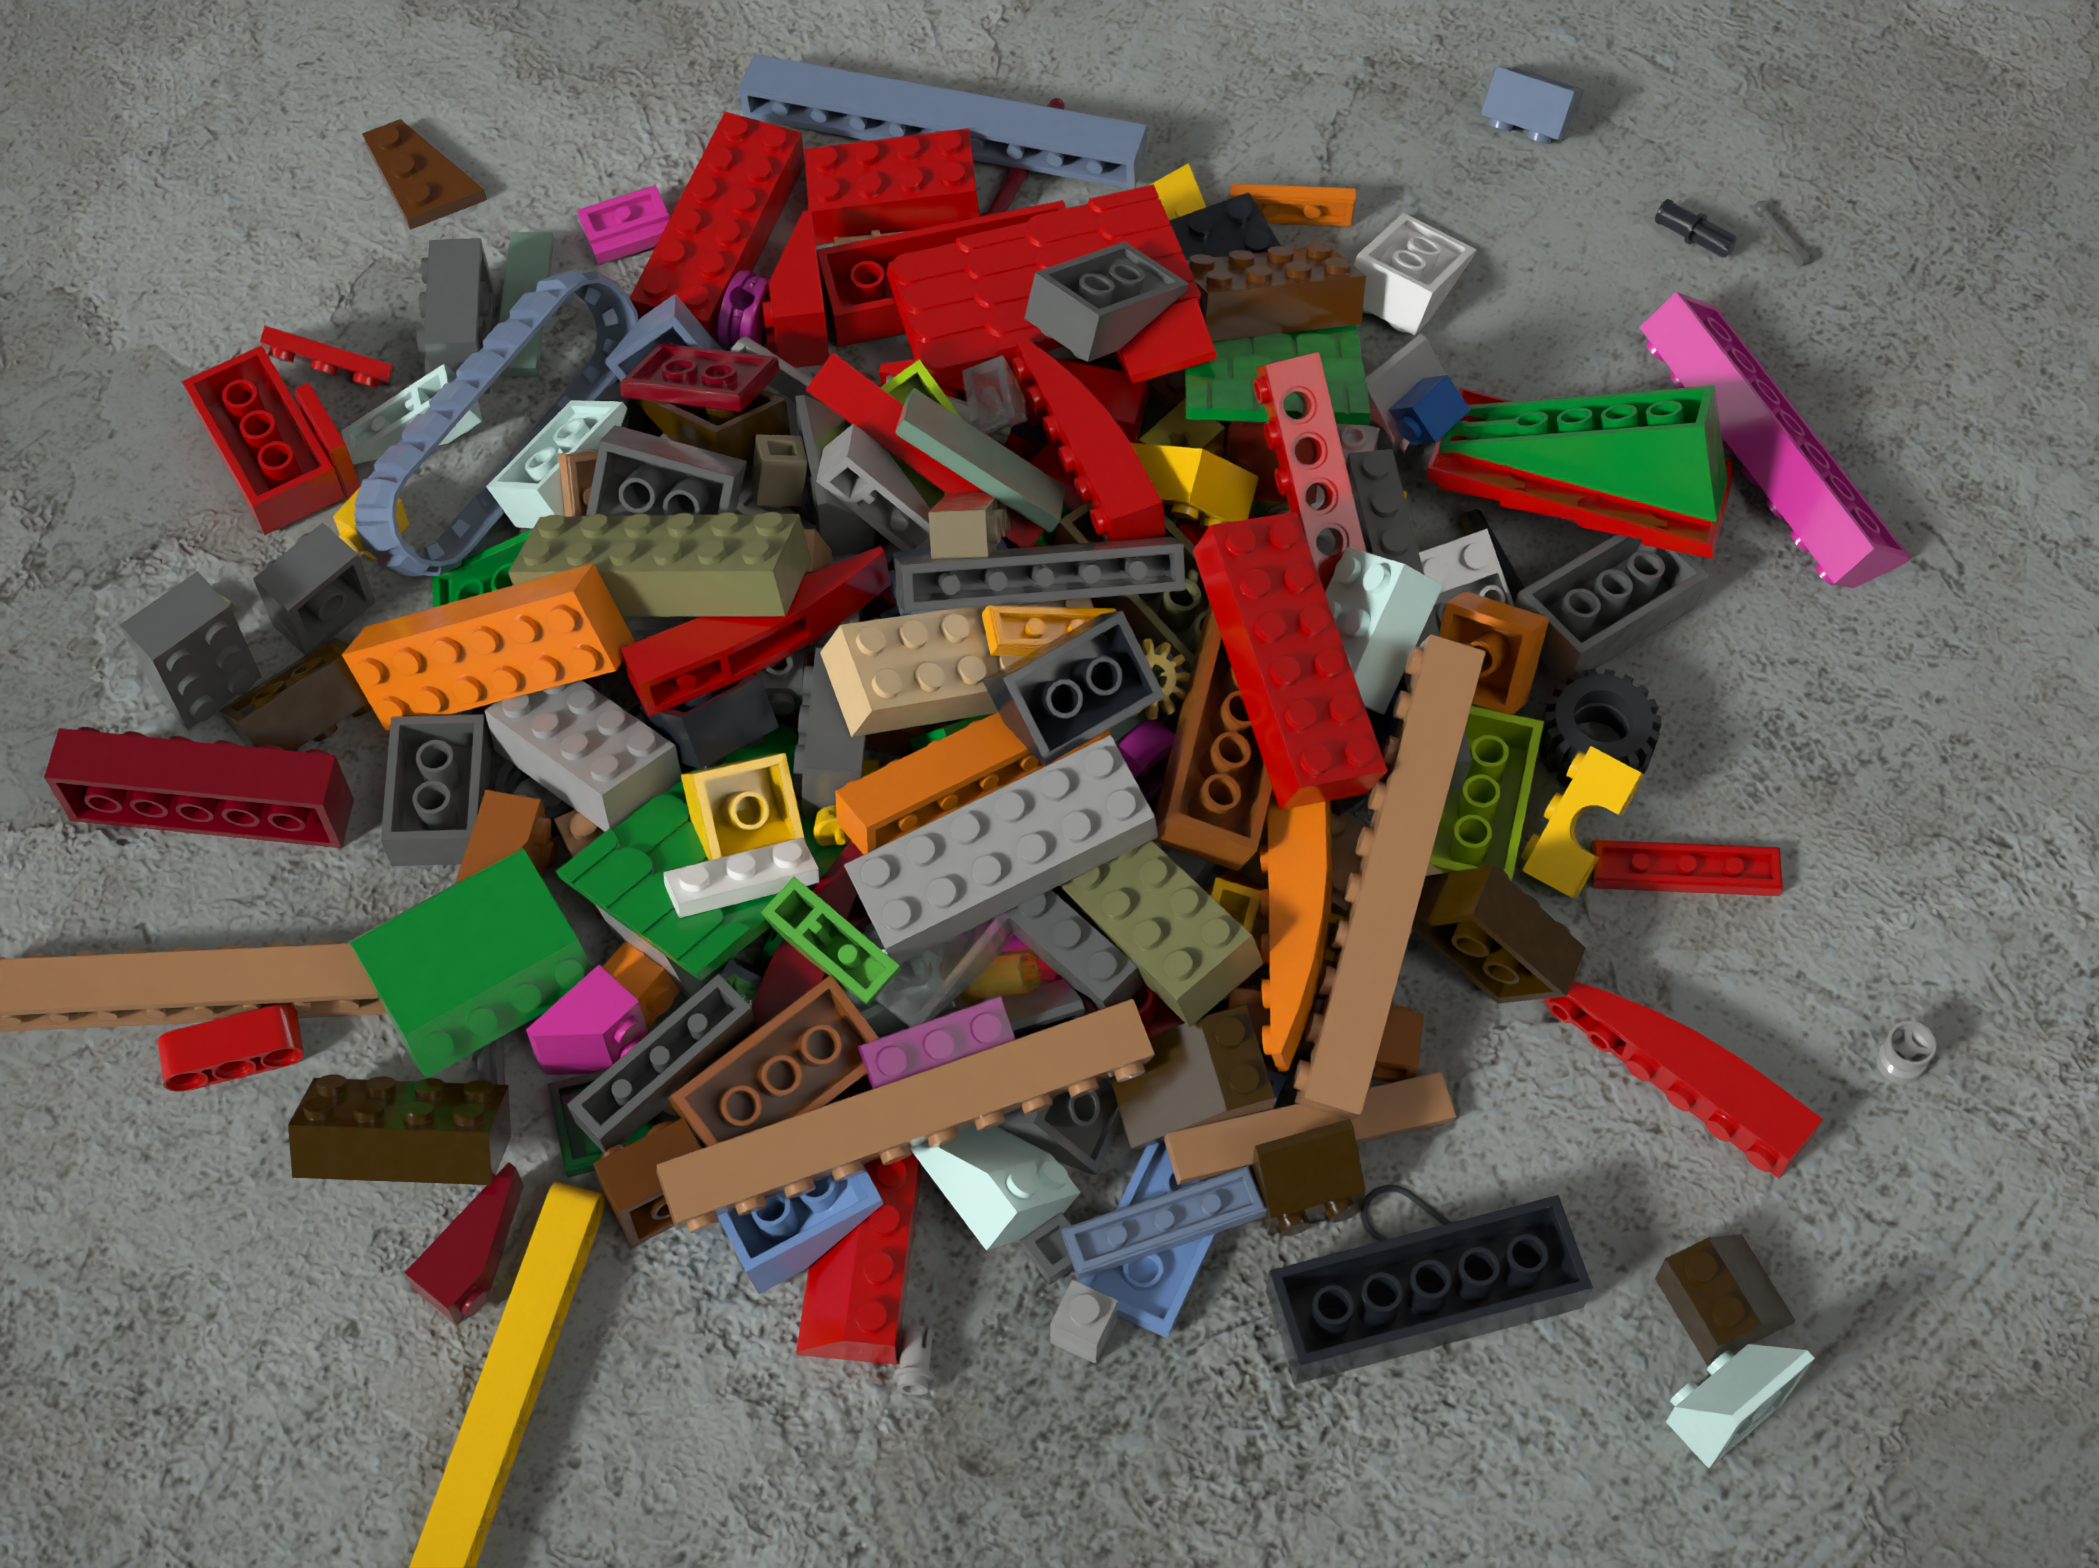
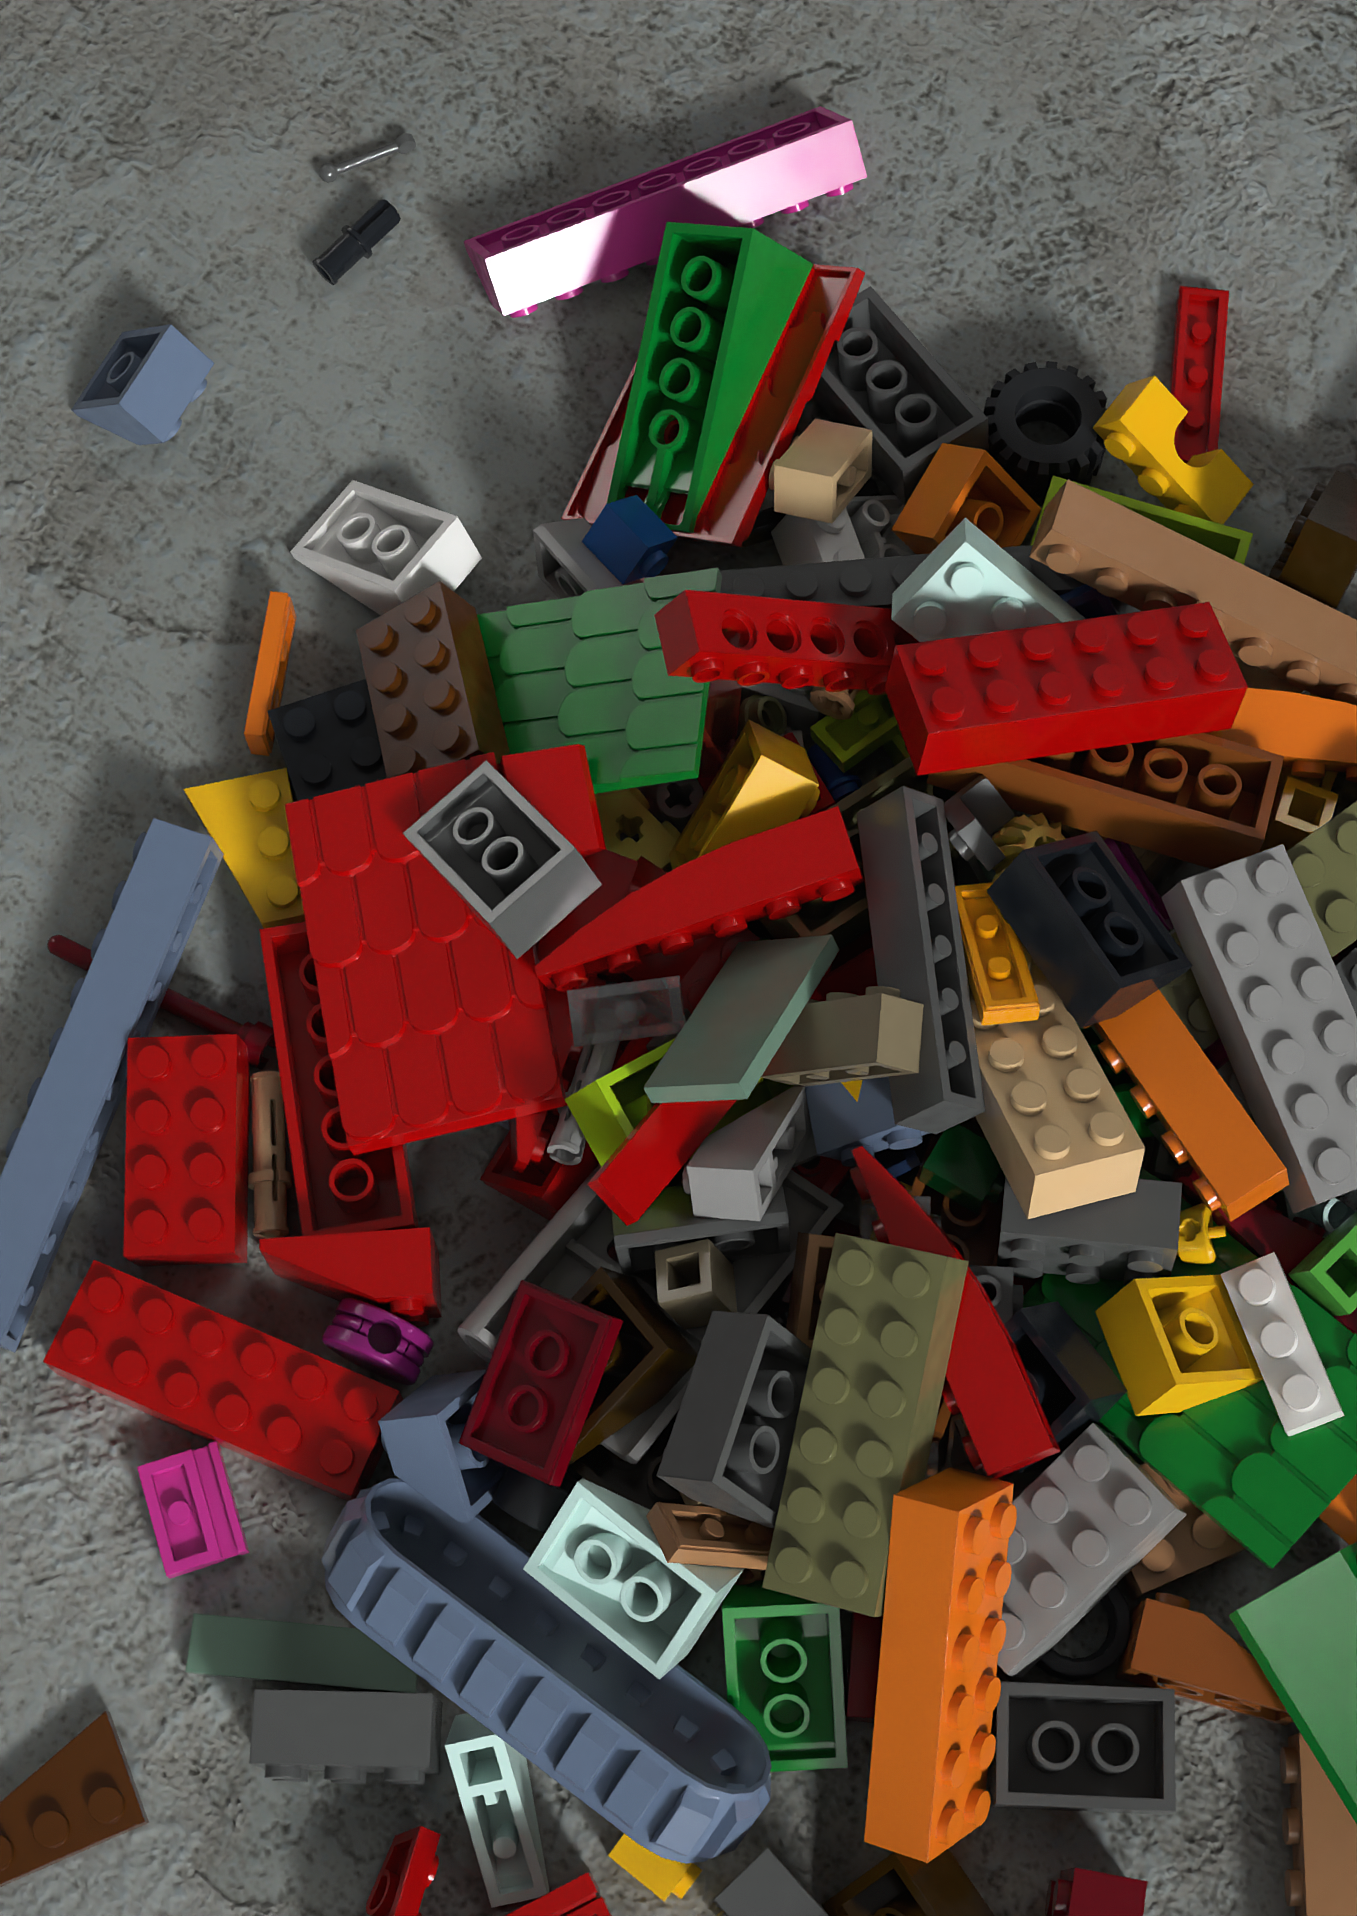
camera: 85 degrees left, 10 degrees up
(1169, 619) = (976, 815): none -> dark grey bracket
(1511, 536) = (822, 470): none -> tan brick

